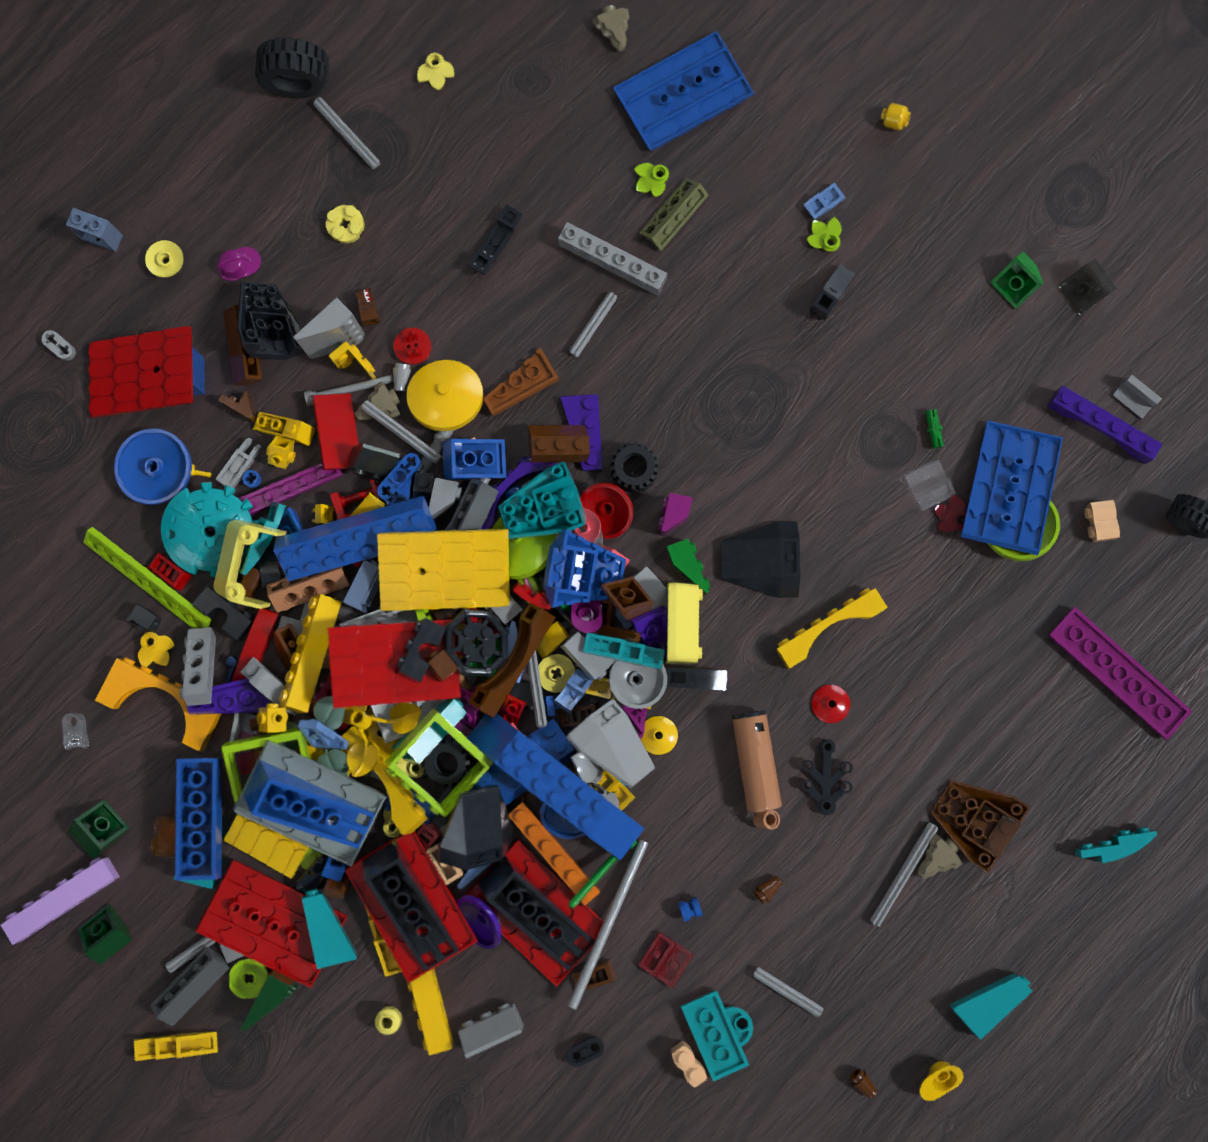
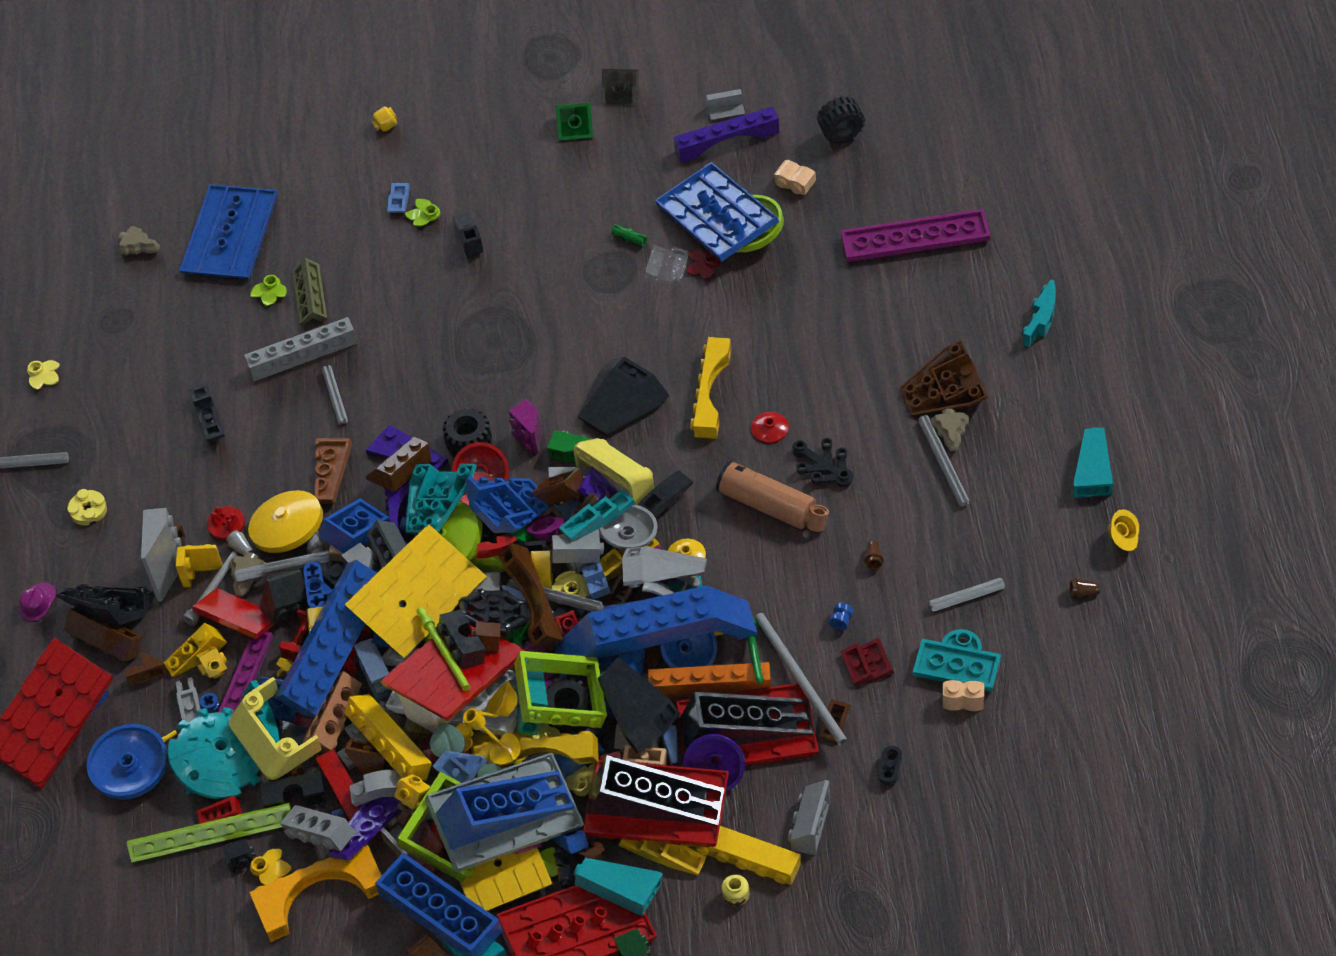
camera: 45 degrees left, 30 degrees down
(417, 608) = (428, 624): none -> lime bar

